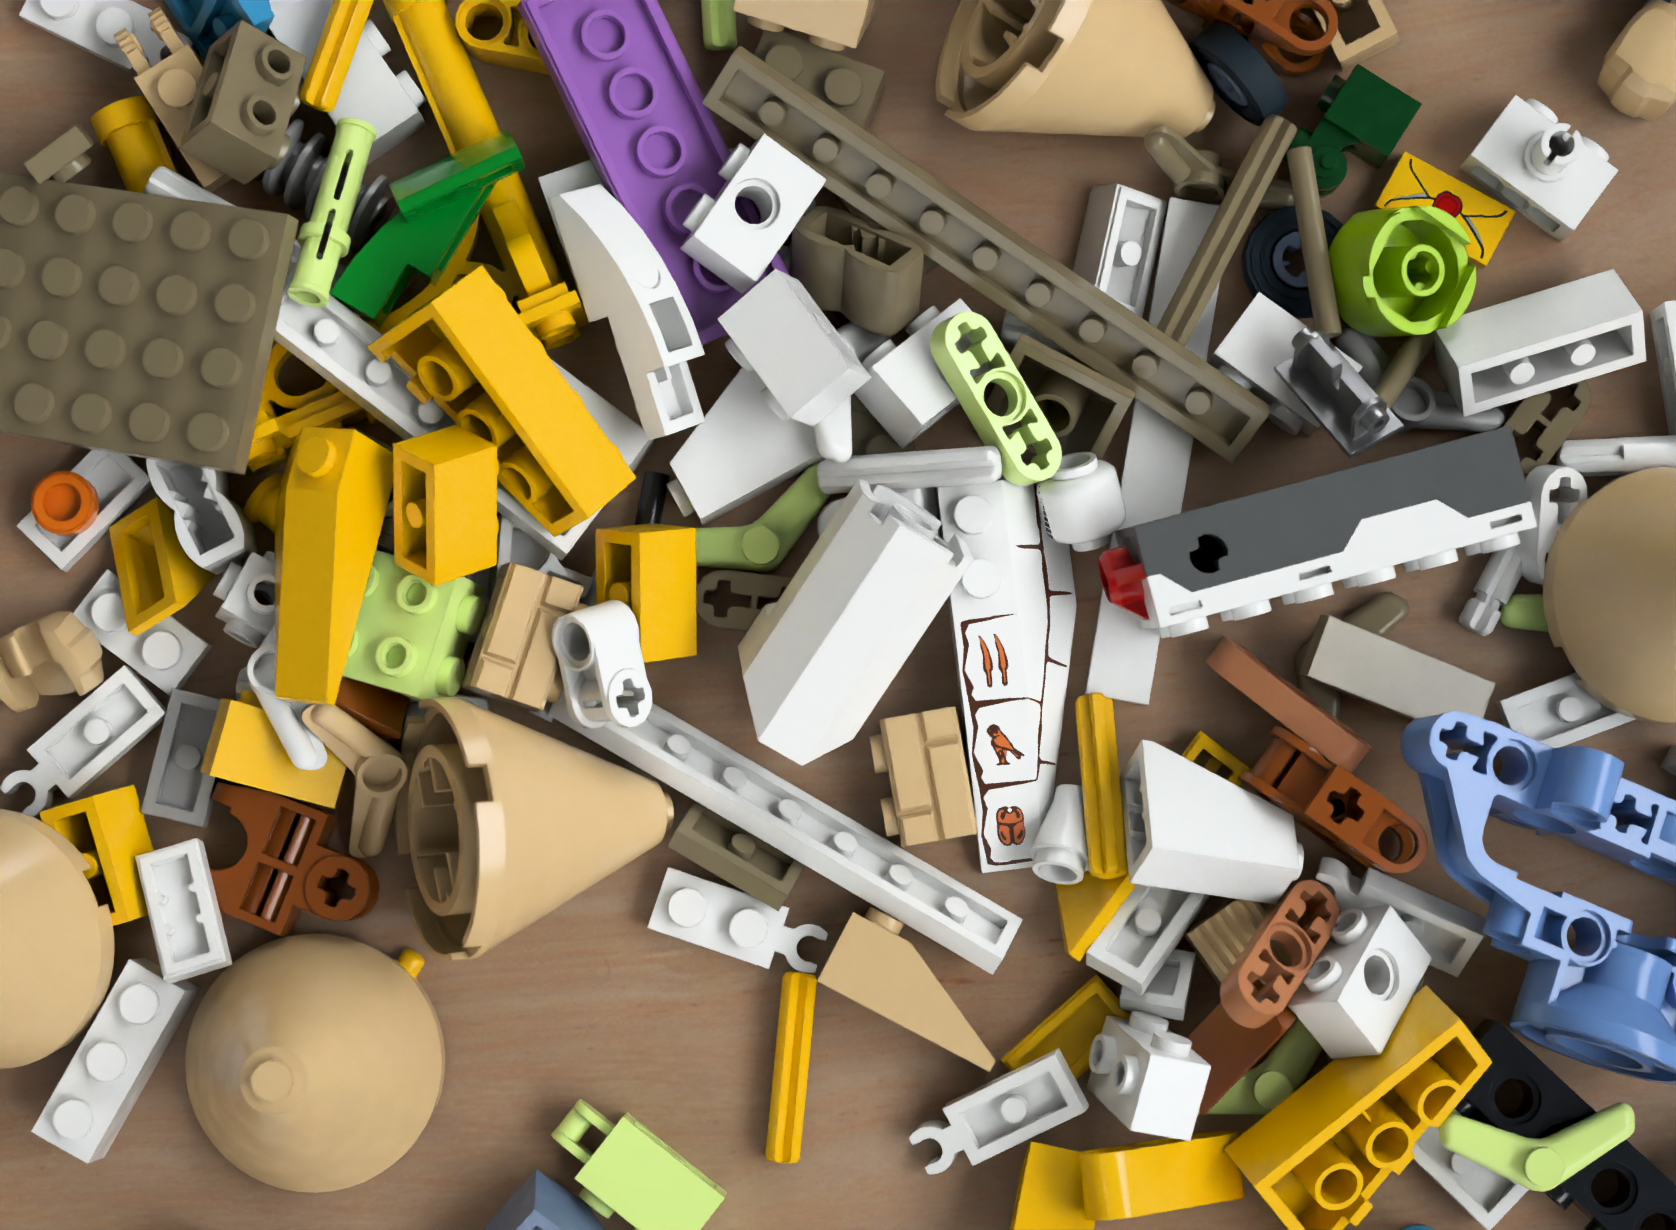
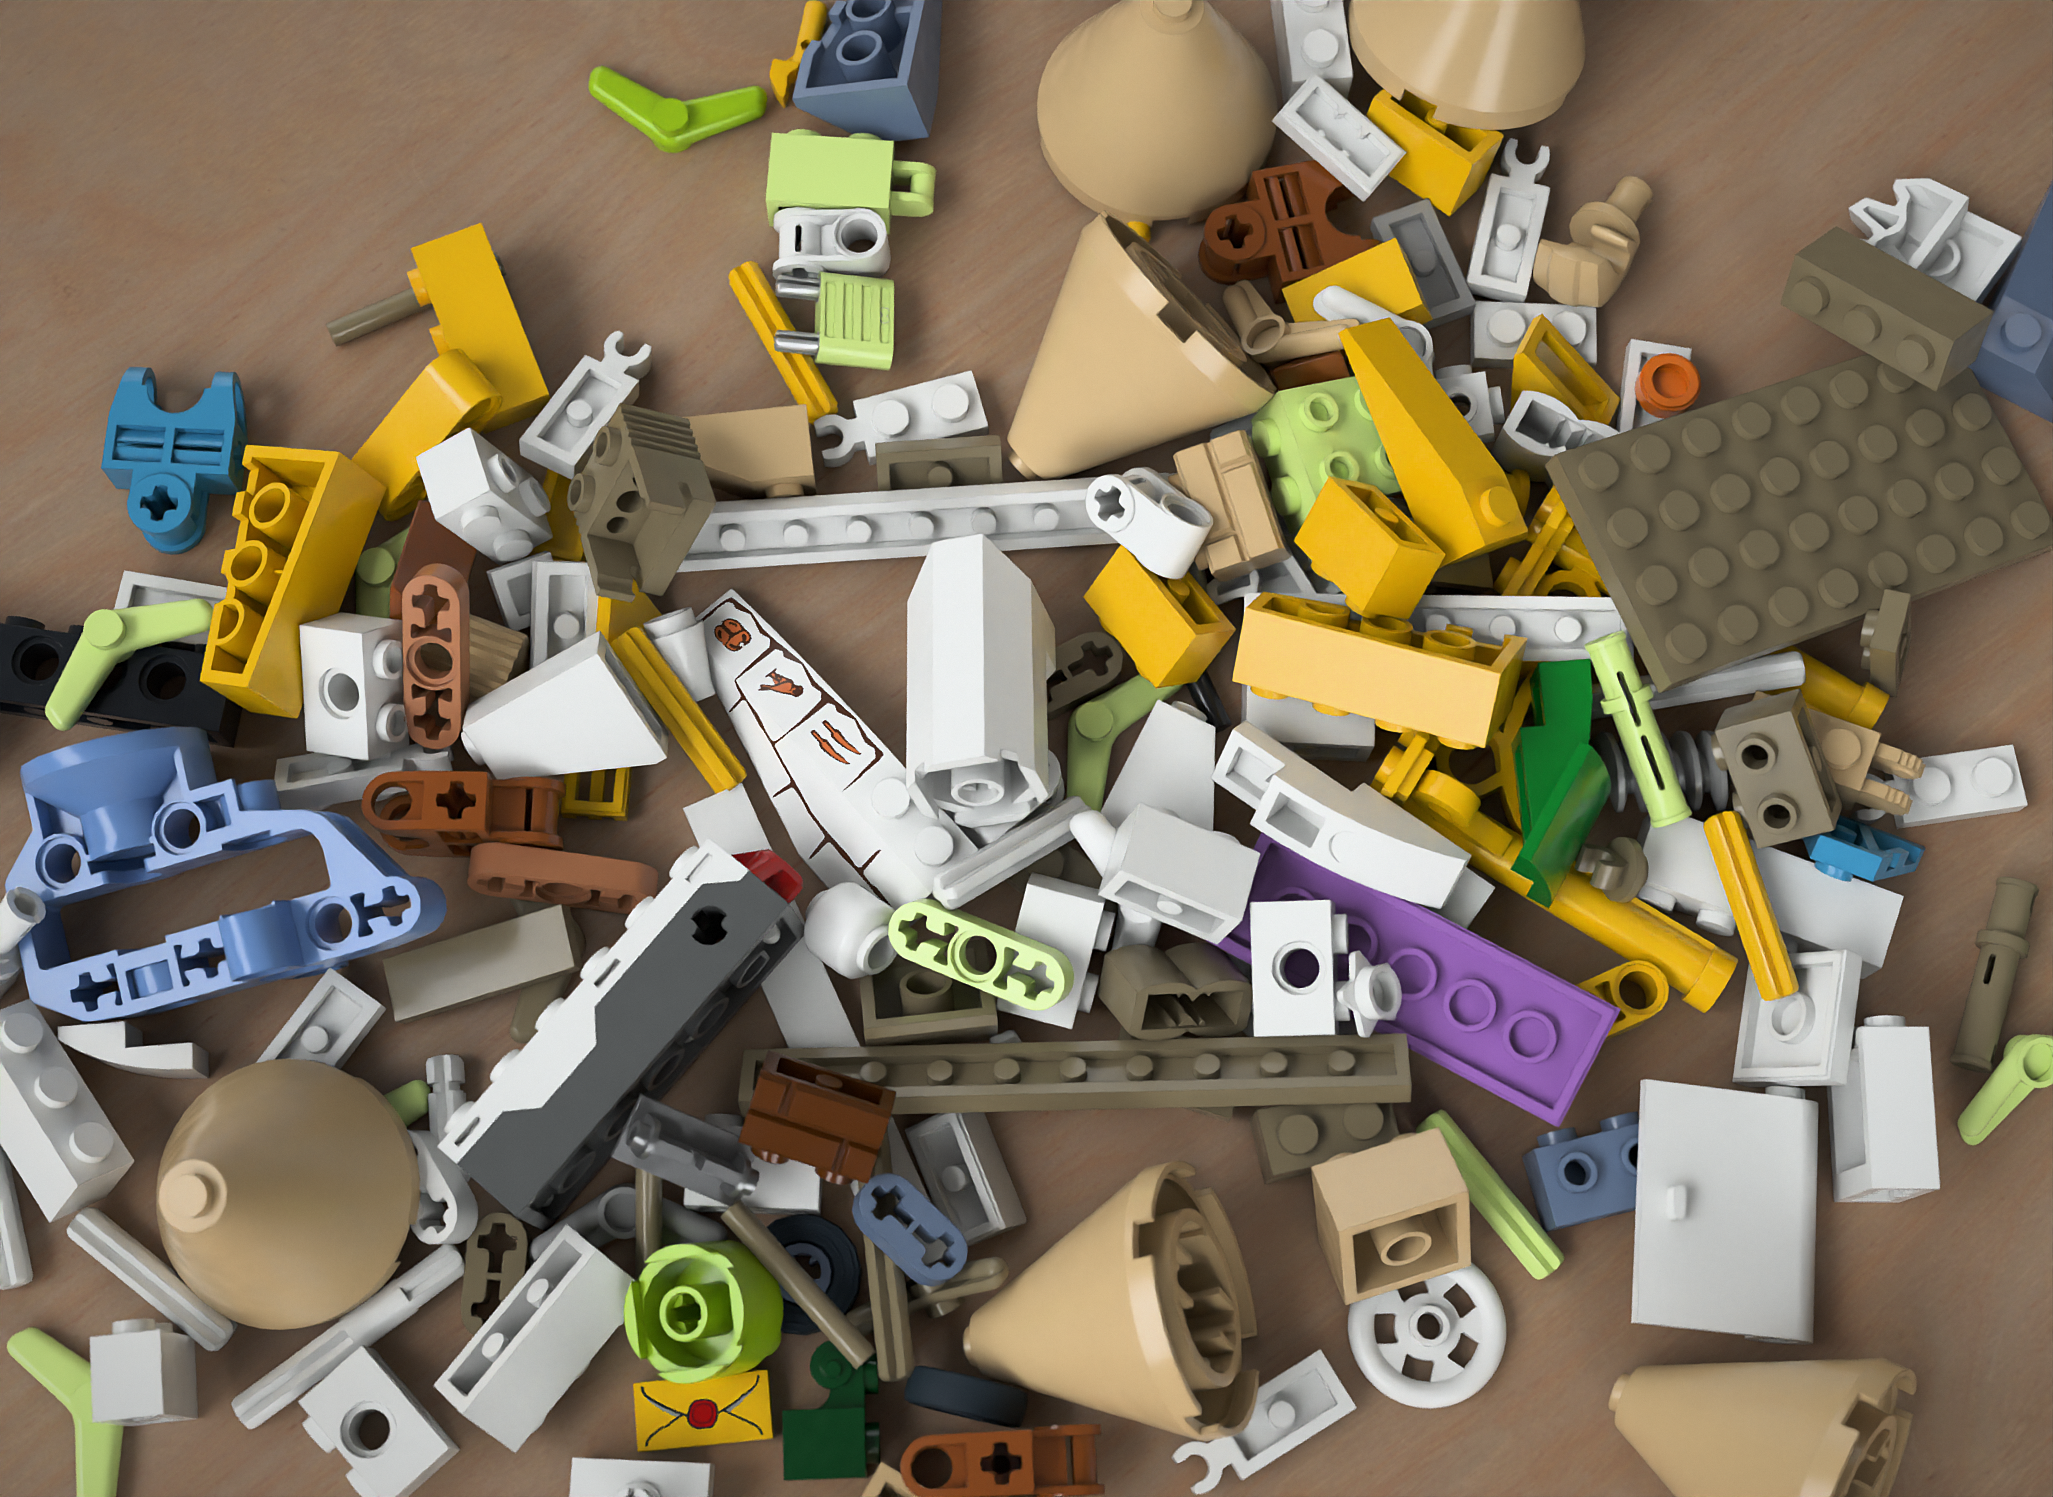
camera: 140 degrees right, 10 degrees down
(428, 120) = (1616, 869): none -> dark tan plate
(696, 1129) = (825, 242): none -> white piece
(708, 149) = (1370, 993): none -> white plate
(721, 1043) = (850, 320): none -> yellowish green piece
(925, 777) = (829, 625): tan brick -> none
(1022, 974) = (640, 501): none -> dark tan piece
(1185, 226) = (921, 1218): none -> sand blue beam
(1218, 349) = (817, 1119): none -> reddish brown brick

